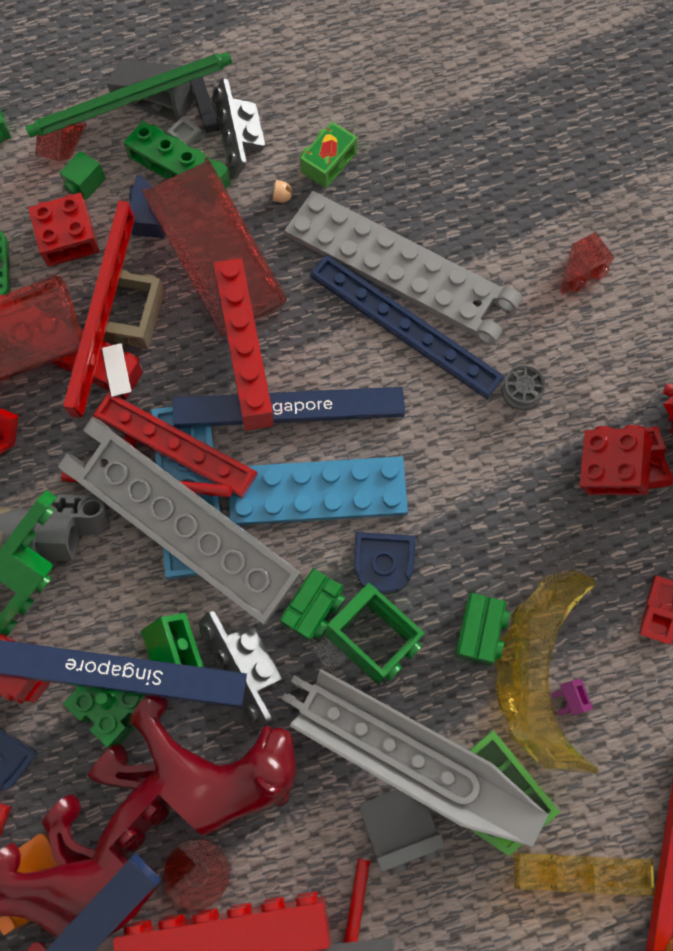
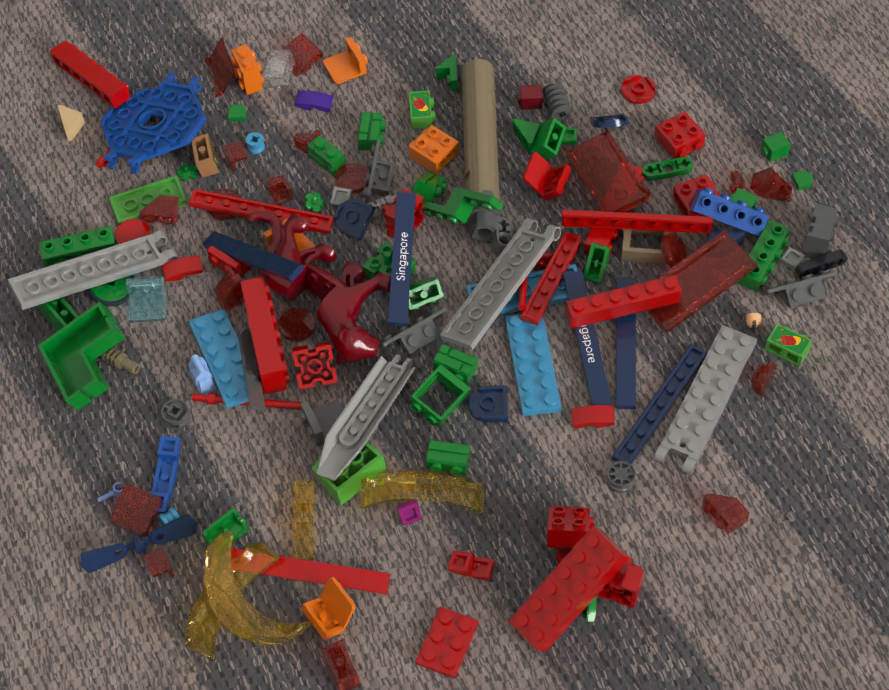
camera: 85 degrees right, 15 degrees down
(41, 177) = (738, 182): none -> clear red arm
(53, 101) = (802, 179): none -> green tile
(104, 186) = (729, 212): none -> blue brick
(116, 370) = (598, 238): white sticker -> none
(129, 94) = (799, 214): green piece -> none
(154, 269) = (673, 249): none -> clear red tile
(154, 378) = (597, 262): none -> green slope
(300, 844) = (314, 365): none -> red brick
(303, 358) = (626, 354): none -> dark blue tile
(376, 192) = (762, 378): none -> clear red brick
(420, 414) = (595, 415): none -> red slope

